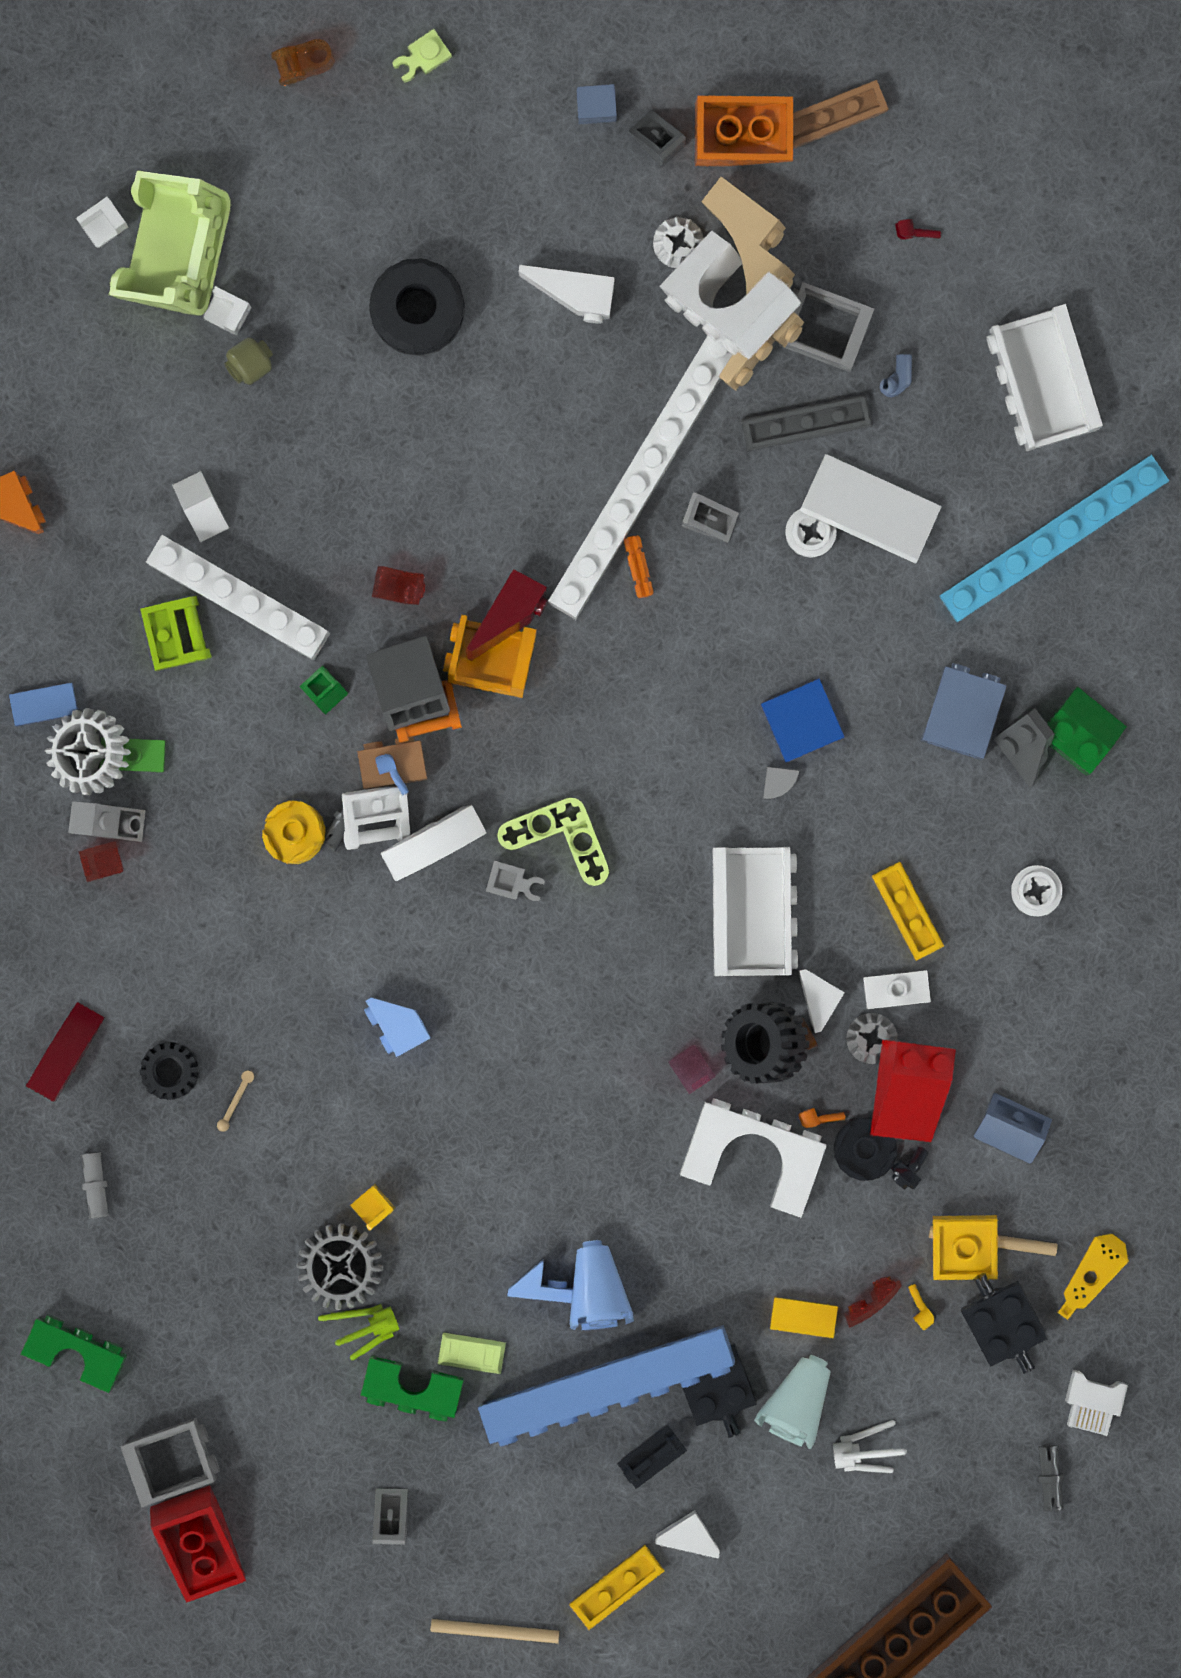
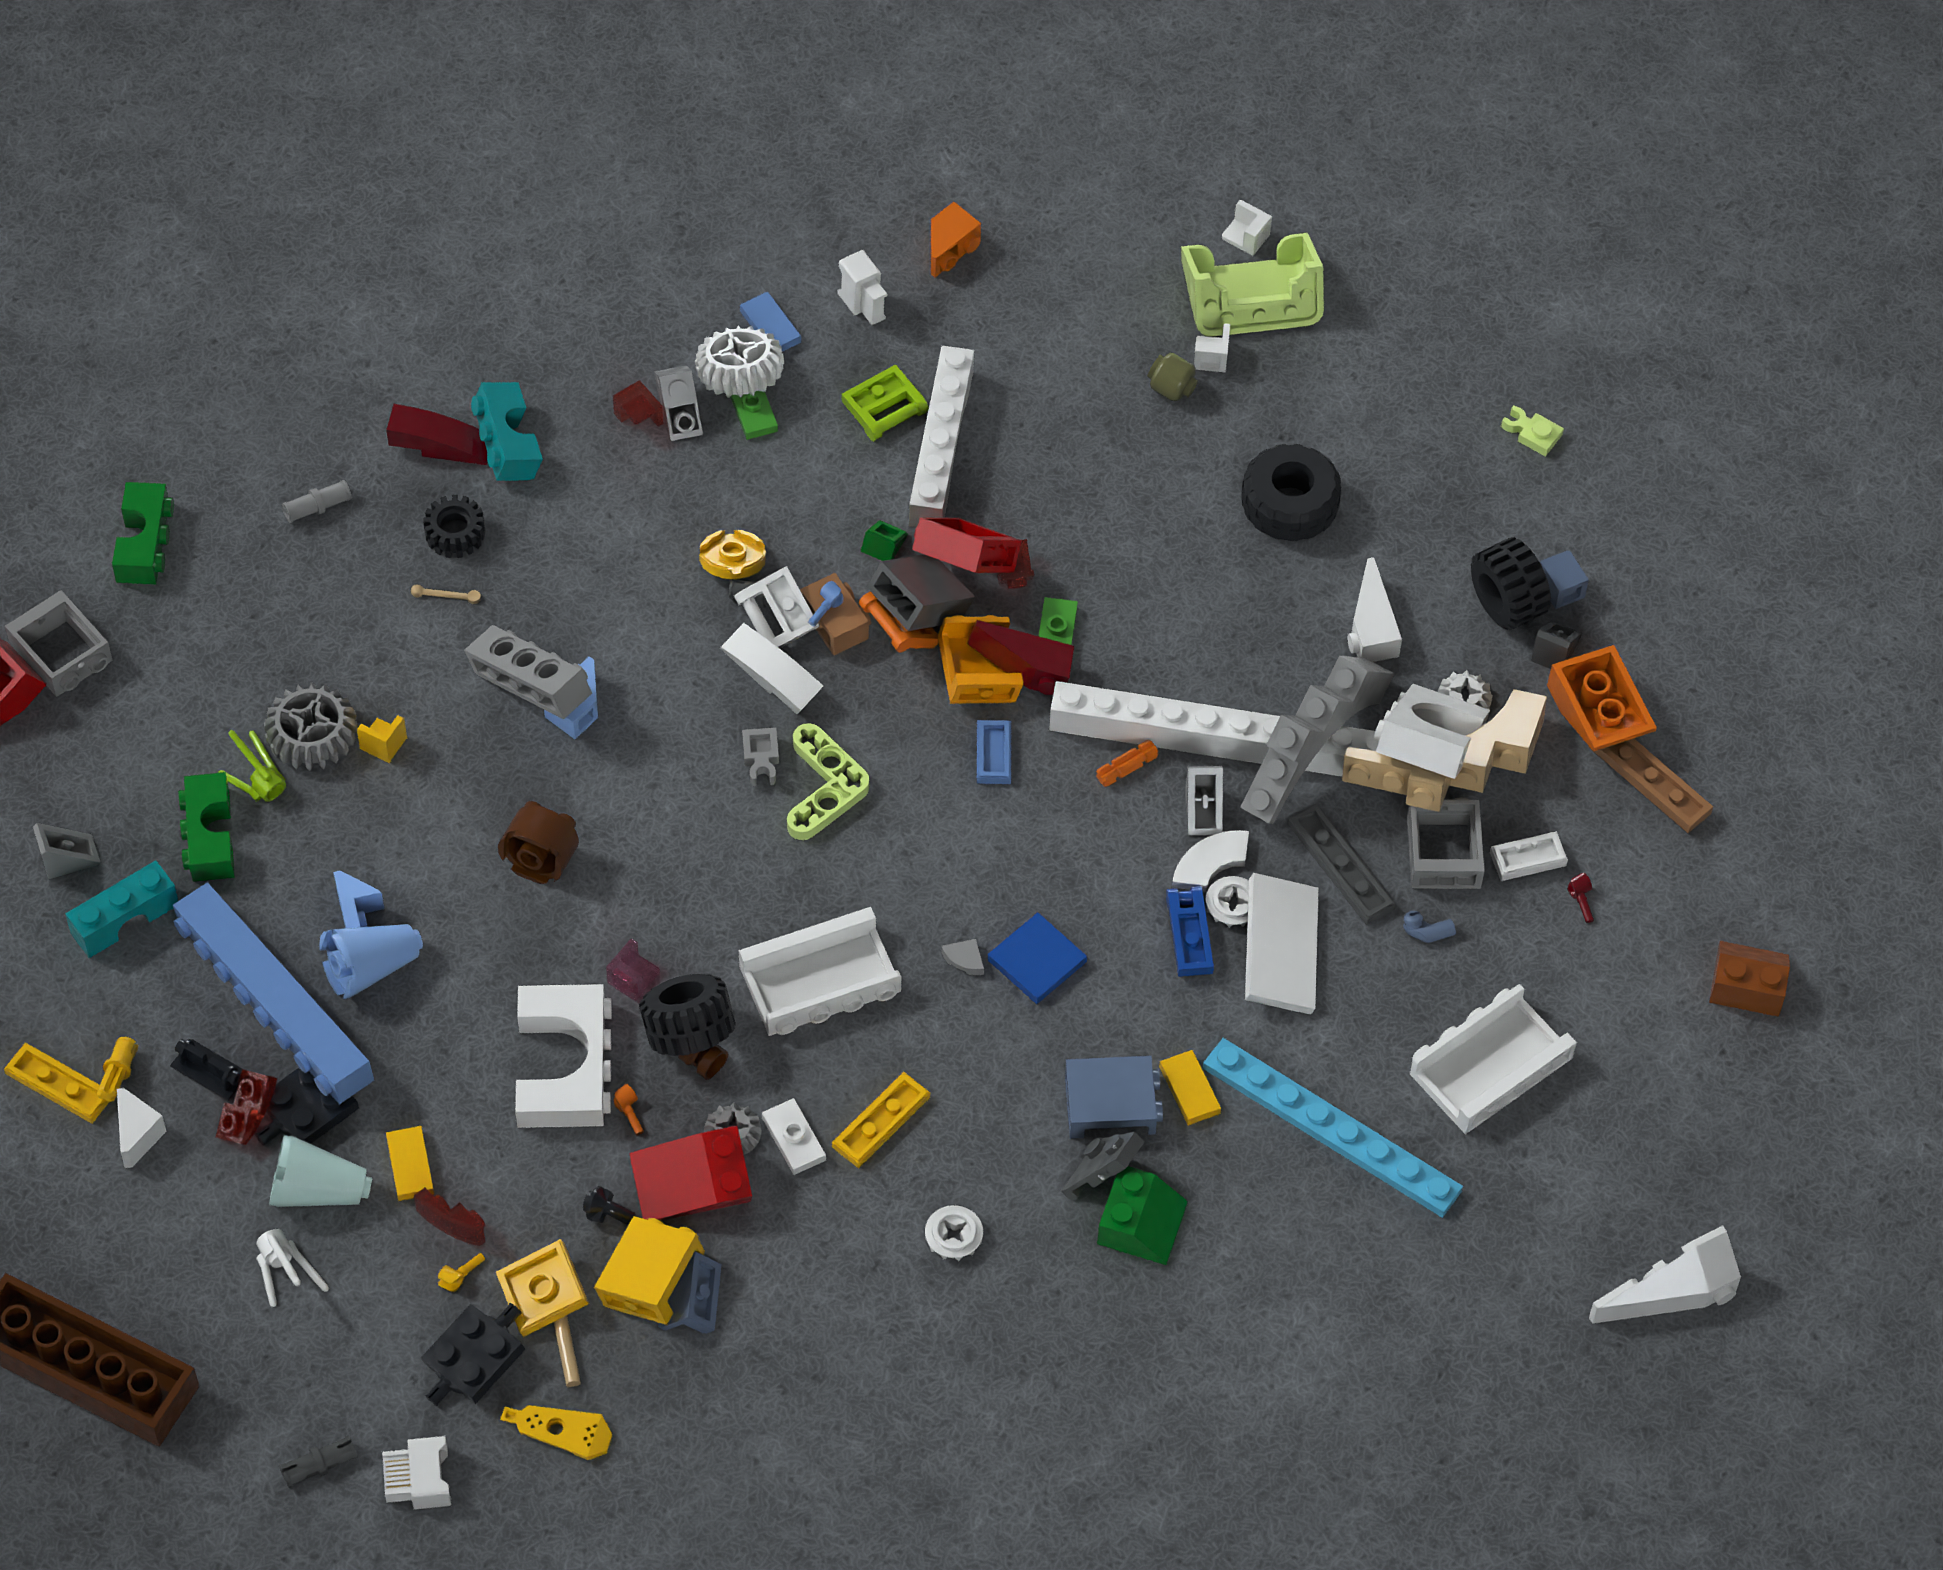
camera: 65 degrees right, 30 degrees down
(44, 607) = (862, 287): none -> white piece
(111, 996) = (498, 411): none -> teal arch
(200, 506) = (1014, 386): white slope -> none
(300, 61) = (1478, 336): clear orange piece -> none
(326, 1086) = (528, 671): none -> light grey brick
(383, 599) = (966, 545): none -> red window
(471, 1353) = (262, 875): yellowish green tile -> none
(471, 1486) = (99, 919): none -> teal arch
(475, 572) = (1058, 620): none -> bright green plate
(542, 1108) = (539, 843): none -> reddish brown brick
(582, 677) = (993, 752): none -> medium blue tile
(597, 156) = (1510, 583): none -> black tyre
(627, 1536) = (117, 1068): none -> yellow axle
(687, 394) = (1298, 738): none -> light grey arch
(706, 1437) = (241, 1119): none -> clear red slope
(759, 535) = (1209, 858): none -> white tile
(820, 998) = (753, 1062): white slope -> none
(827, 581) = (1190, 932): none -> blue plate
(855, 1143) = (612, 1171): black tile -> none
(862, 260) = (1528, 856): none -> white plate
(973, 641) = (1190, 1087): none -> yellow tile
(984, 1155) = (647, 1268): none -> yellow panel
(1046, 123) = (1750, 978): none -> dark orange slope

